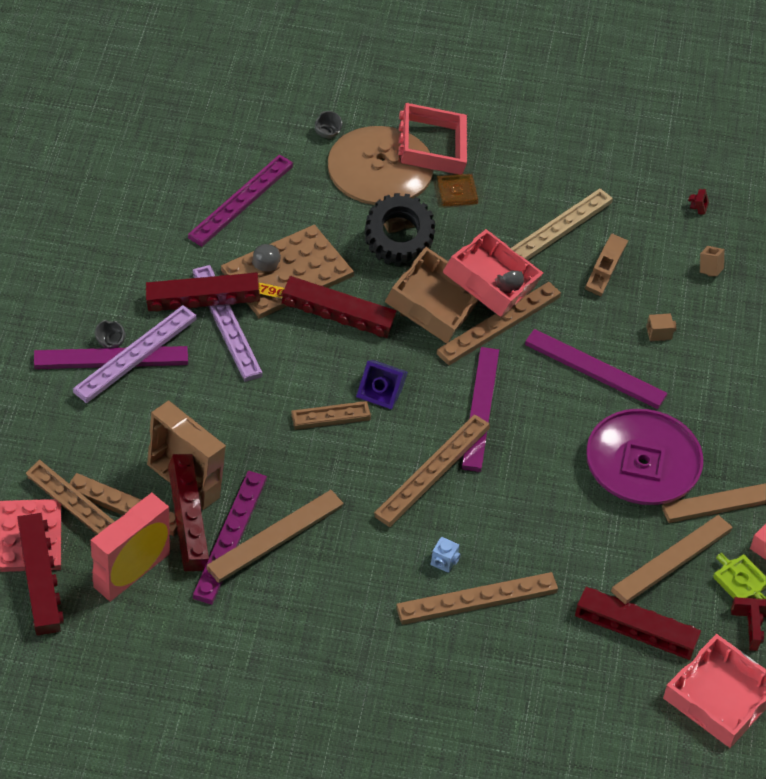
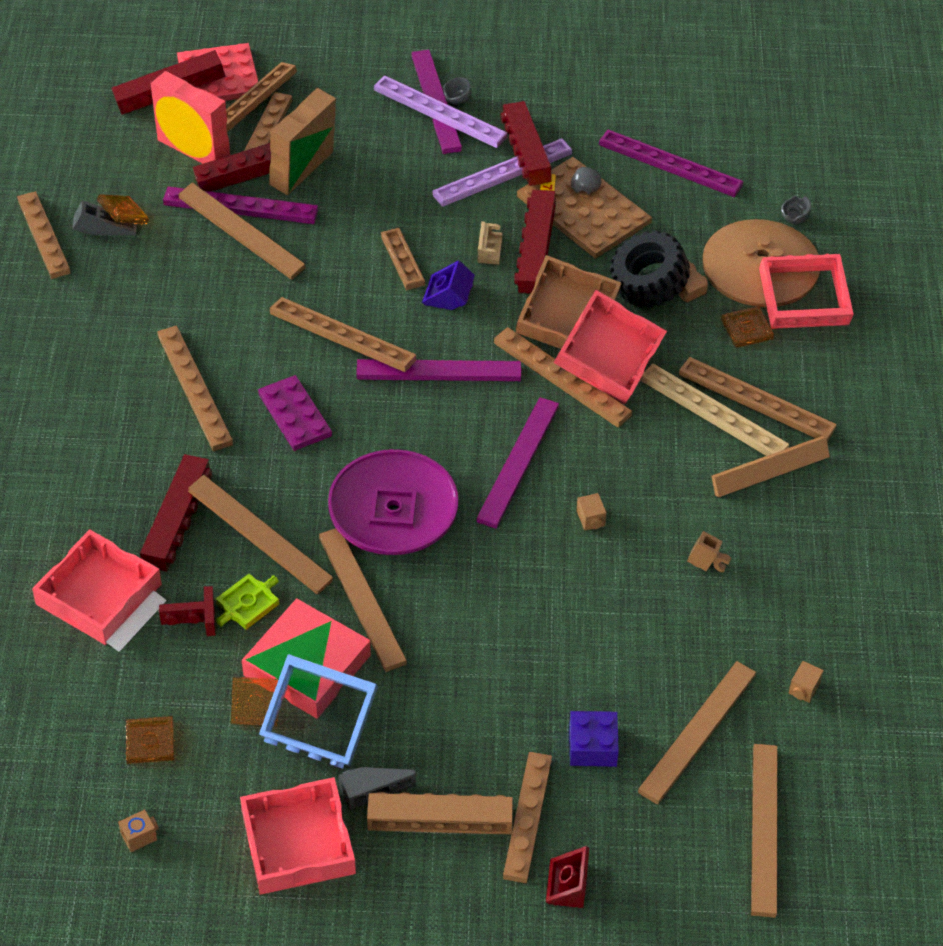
camera: 85 degrees right, 0 degrees up
(226, 633) = (123, 209): none -> clear orange tile
(238, 655) = (97, 221): none -> dark grey slope
(239, 714) = (43, 235): none -> medium nougat plate
(327, 348) = (489, 244): none -> tan hinge
(445, 554) = (237, 352): light blue brick -> none
(510, 281) = (599, 361): dark grey hair -> none
(519, 522) = (294, 412): none -> magenta plate
(544, 200) = (757, 399): none -> medium nougat plate
(606, 264) = (676, 454): medium nougat slope -> none
(621, 205) = (770, 466): none -> medium nougat tile
(699, 201) = (804, 541): dark red tile -> none

